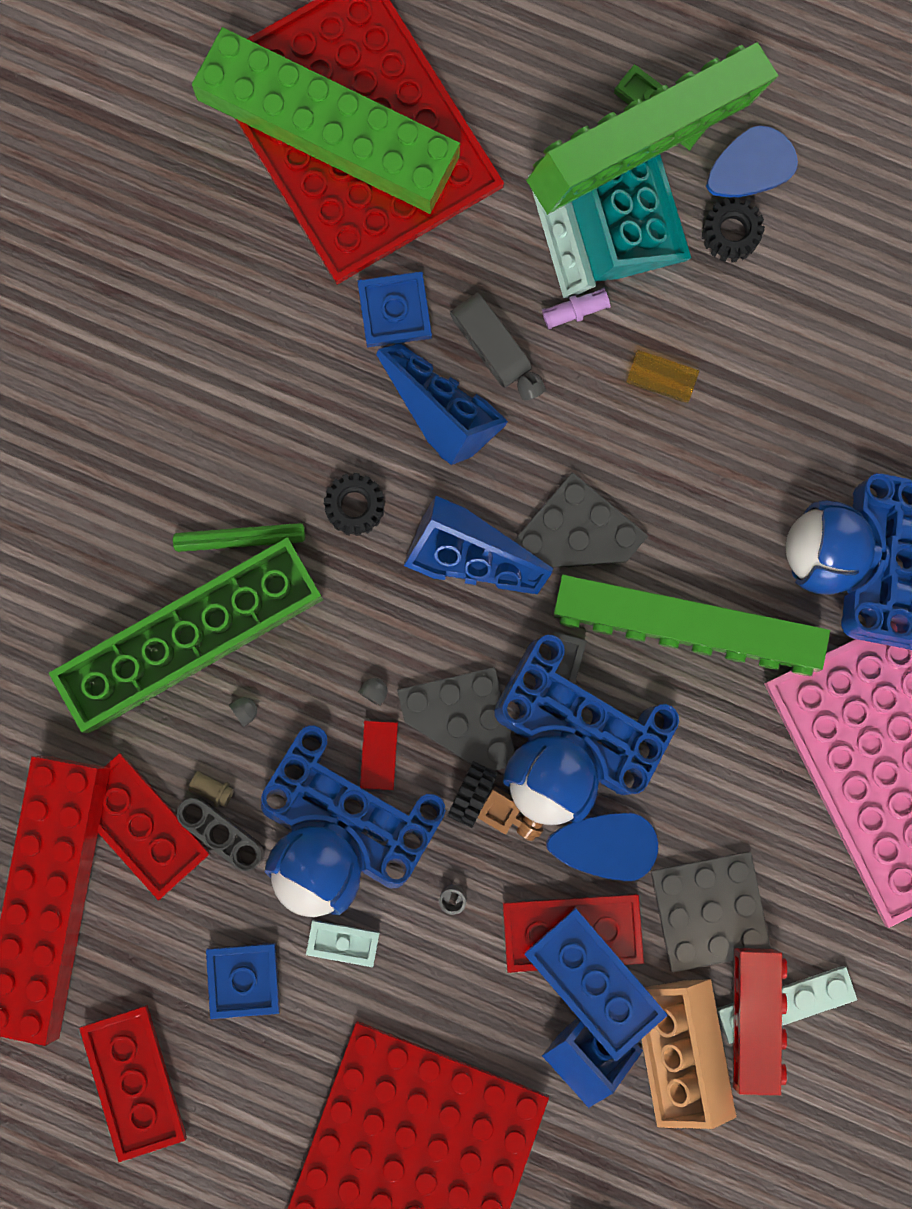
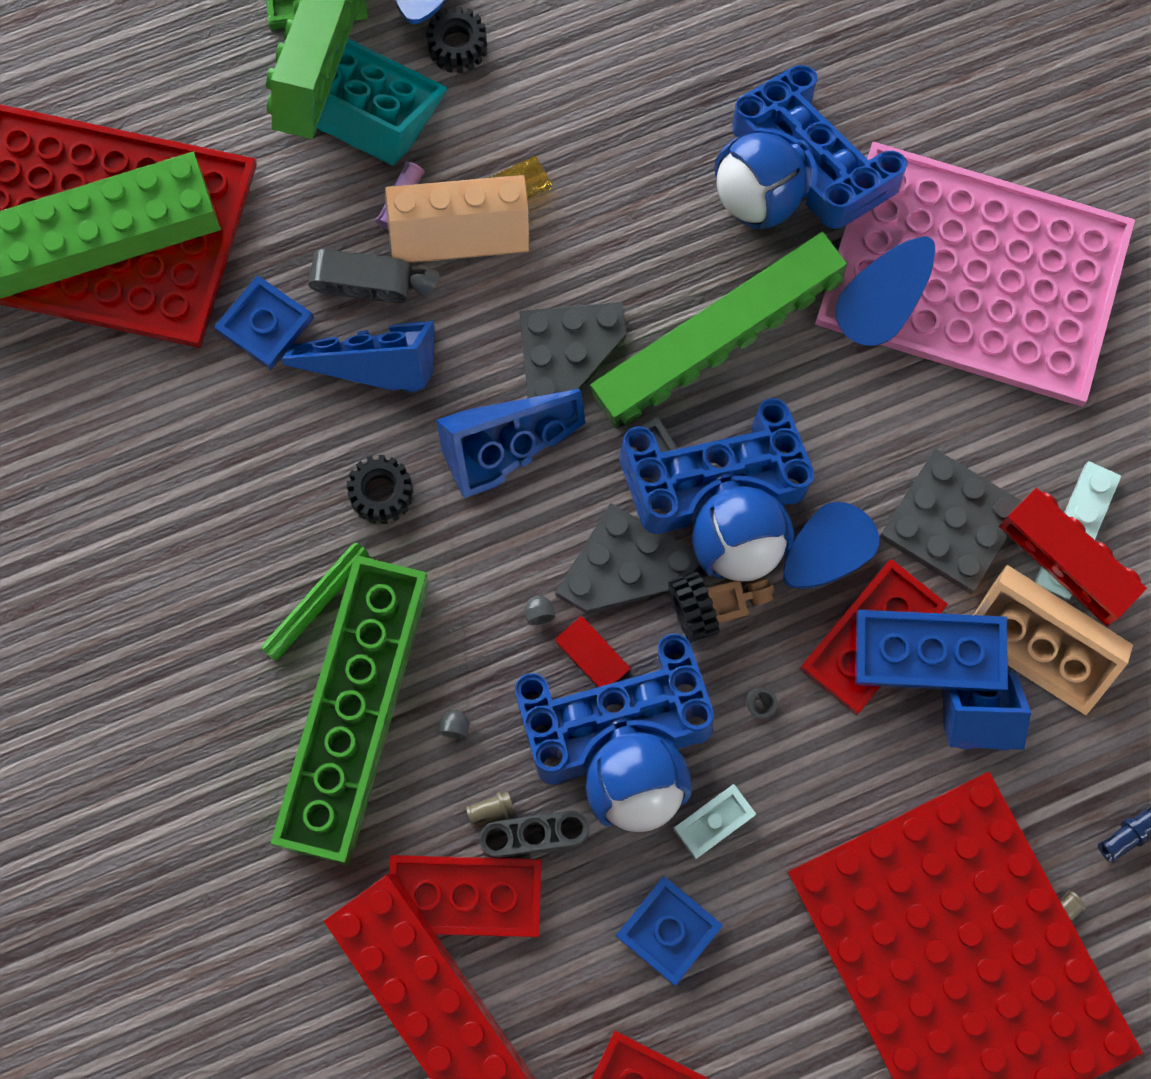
camera: 40 degrees left, 10 degrees down
(566, 249) = (340, 158): light aqua plate -> none
(594, 367) = (458, 219): none -> light nougat slope
(830, 715) = (886, 293): none -> blue shield

